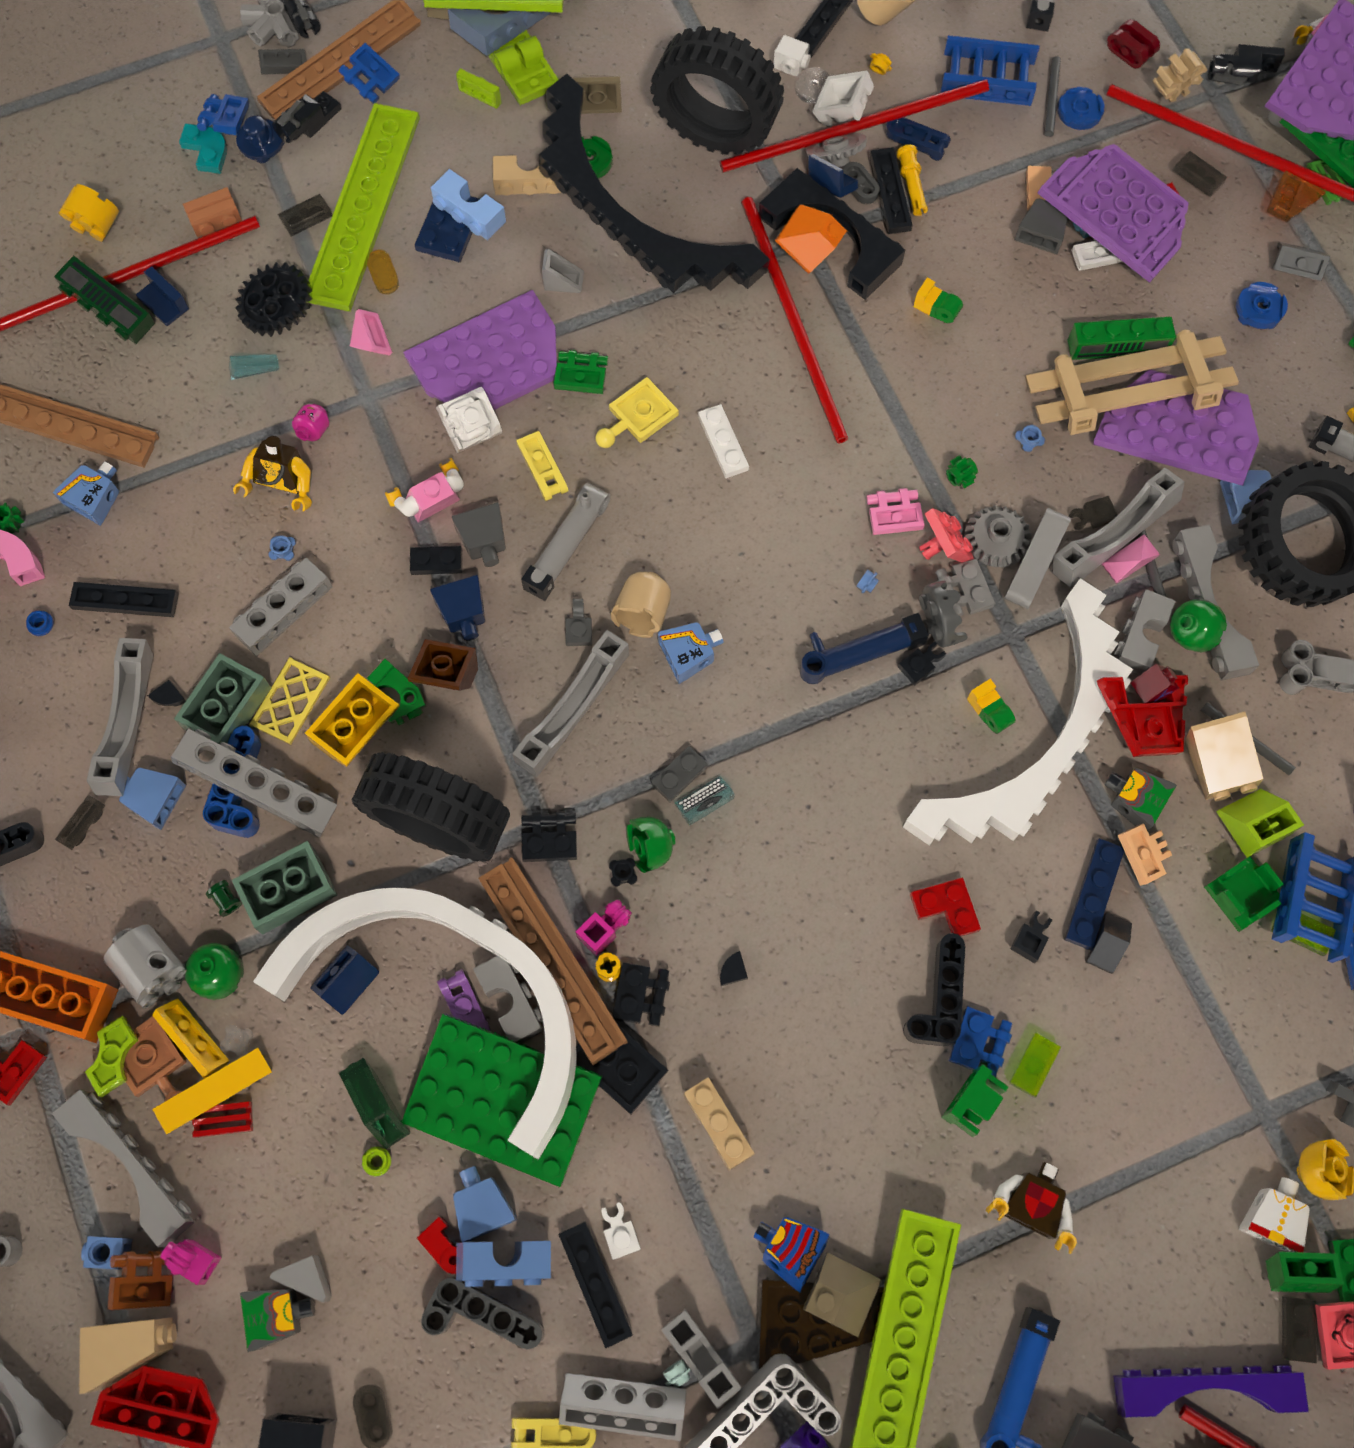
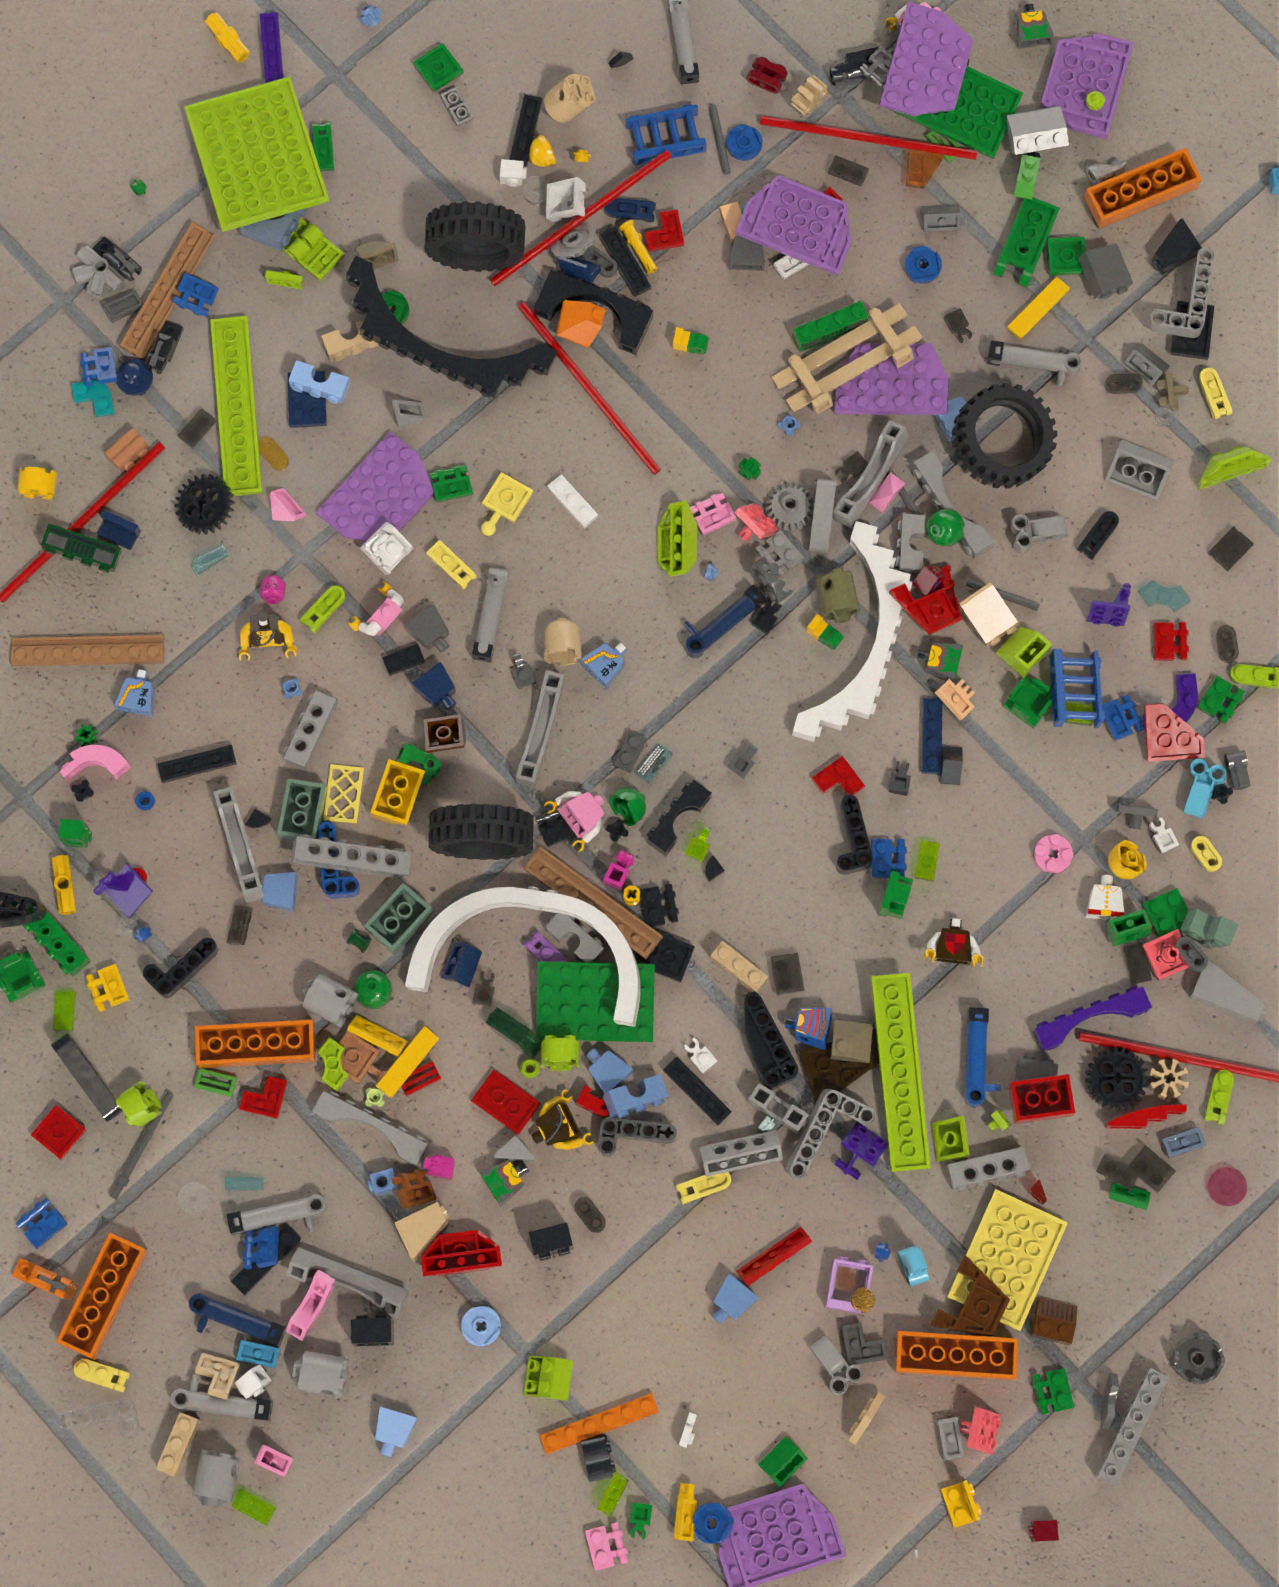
camera: 20 degrees left, 5 degrees up
(143, 1126) = (374, 1092): none -> yellowish green plate
(324, 1198) = (506, 1102): none -> red tile
(357, 1030) = (484, 992): none -> clear smoke plate
(363, 465) = (324, 608): none -> lime plate
(379, 1263) = (558, 1125): none -> torso
(423, 1156) = (560, 1053): none -> lime brick
(581, 832) = (581, 813): none -> bright pink torso
(710, 1258) = (764, 1050): none -> black beam
(723, 934) = (698, 847): none -> clear neon green plate
(739, 864) = (693, 799): none -> black arch
(784, 1157) = (787, 973): none -> clear smoke plate
(823, 840) = (742, 763): none -> dark grey plate
(834, 43) = (541, 152): none -> yellow hat
(839, 526) = (677, 539): none -> lime wedge
(951, 180) = (670, 234): none -> red plate
(1025, 663) = (837, 595): none -> olive cylinder
(1235, 1124) = (1064, 854): none -> bright pink plate
(1280, 61) = (880, 61): none -> flat silver plate
(1286, 386) = (957, 323): none -> clear smoke plate

